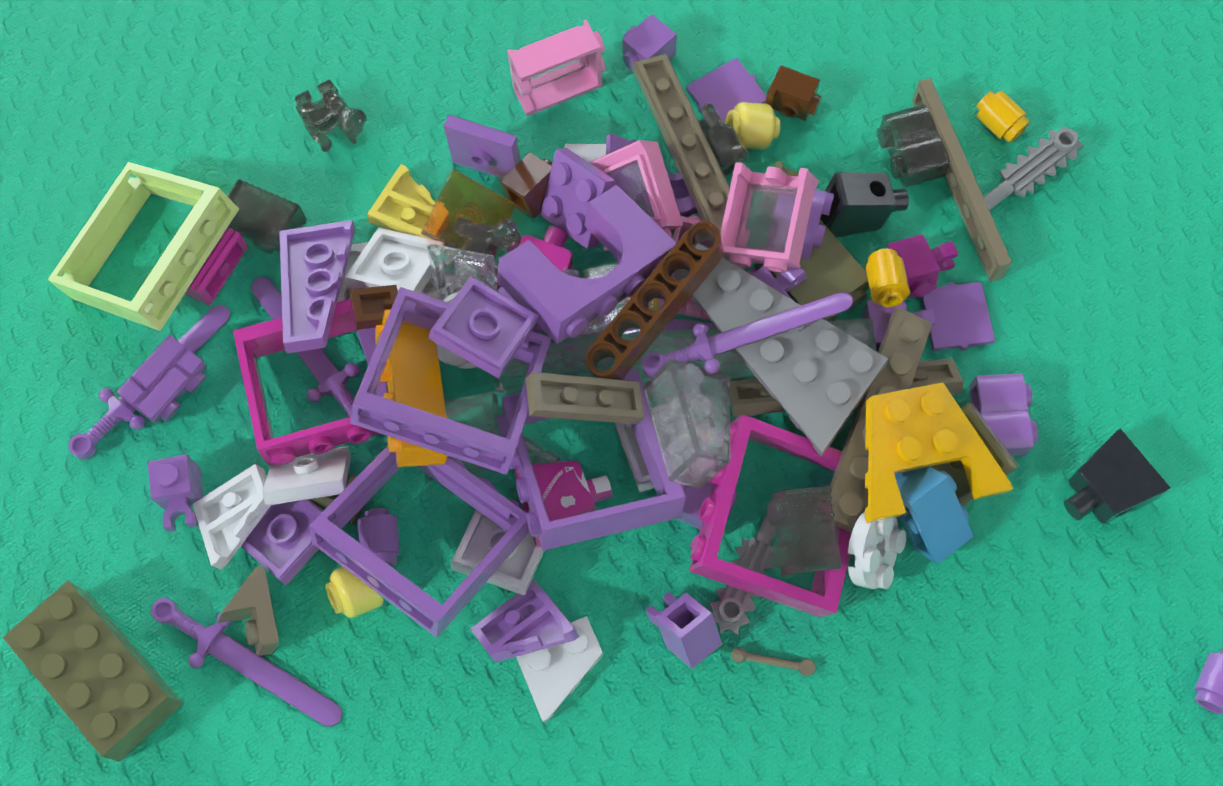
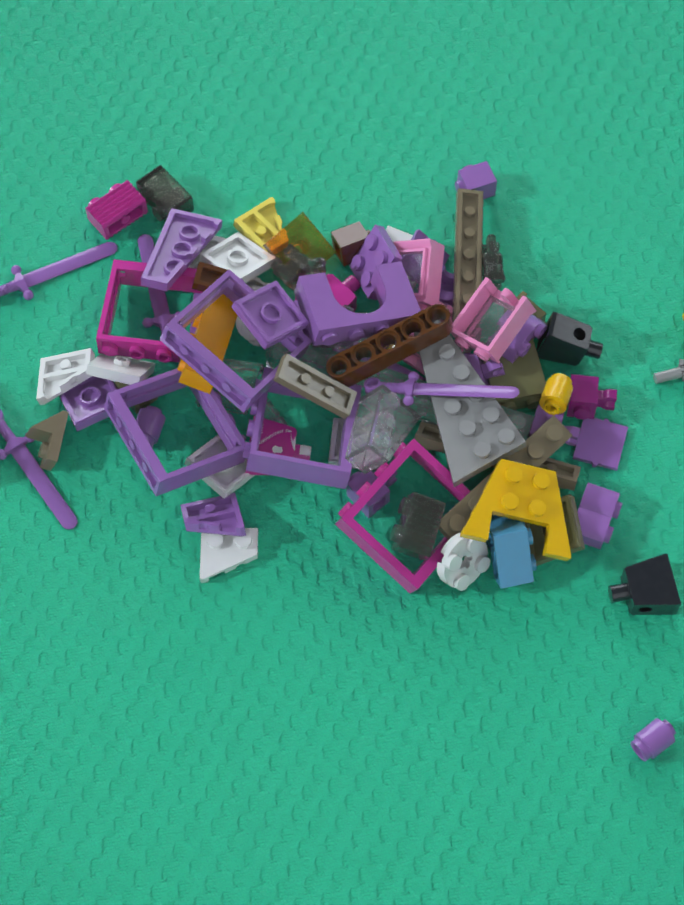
camera: 20 degrees right, 5 degrees down
(163, 380) = (56, 274): medium lavender brick -> none
(175, 487) = (34, 342): medium lavender brick -> none
(176, 266) = (97, 203): yellowish green window -> none
(327, 114) = (239, 145): clear smoke animal -> none
(350, 594) = (116, 453): light yellow head -> none
(454, 266) = (271, 270): clear slope -> none
(481, 146) = (328, 204): medium lavender plate -> none
(557, 68) = (405, 173): bright pink window -> none
(686, 628) = (317, 560): medium lavender brick -> none
(726, 88) = (517, 235): medium lavender piece -> none
(734, 602) = (356, 558): light grey piece -> none
(754, 124) = (521, 262): light yellow head -> none
(794, 94) = (559, 252): reddish brown brick -> none
(805, 667) = (385, 619): dark tan hinge -> none
(913, 145) = (626, 318): clear smoke brick -> none
(965, 188) = (647, 354): dark tan tile -> none

